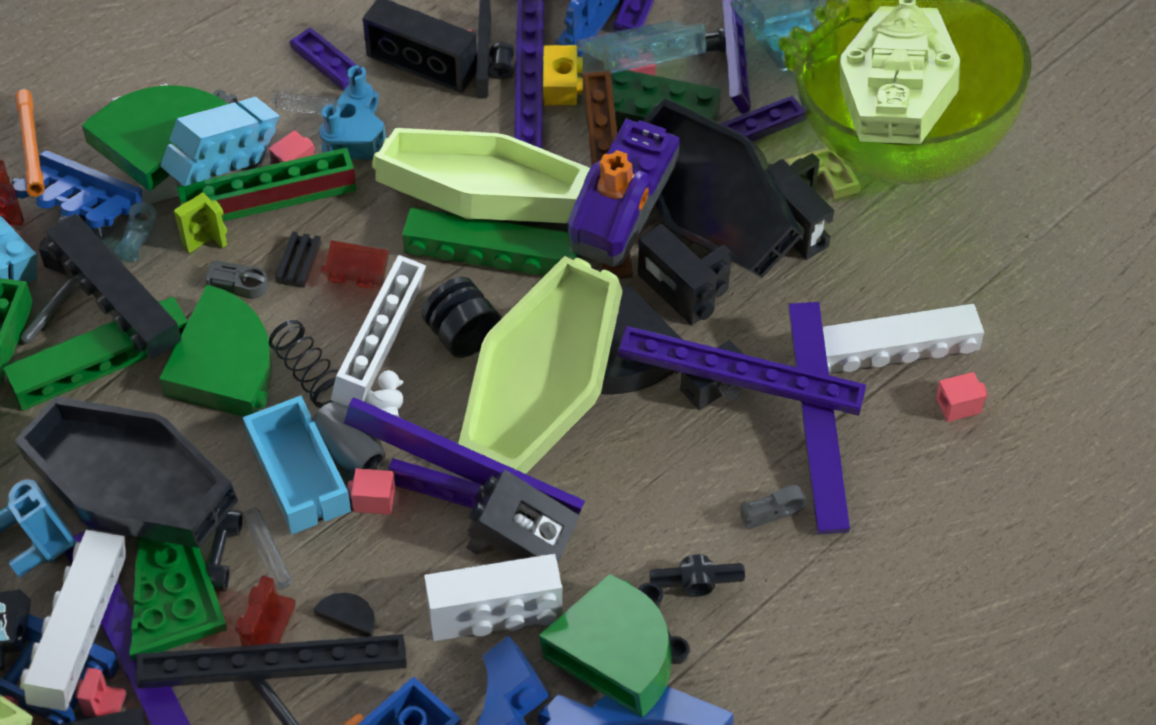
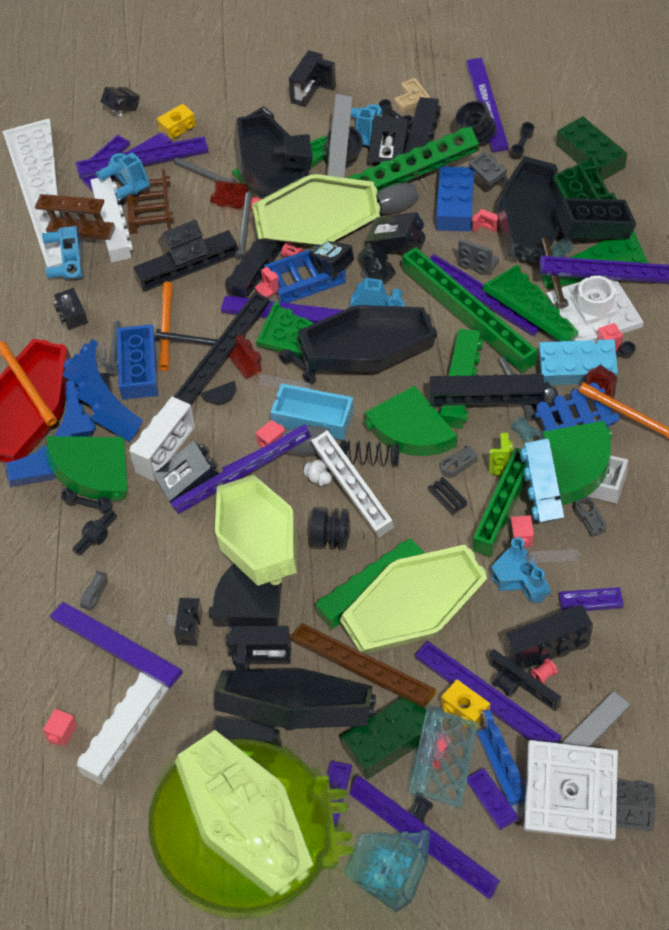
camera: 135 degrees right, 0 degrees up
(74, 620) = (302, 280): white brick -> none
(355, 263) = (415, 512): clear red bracket -> none
(621, 192) = (329, 644): dark purple piece -> none
(742, 370) = (166, 618): dark purple tile -> none

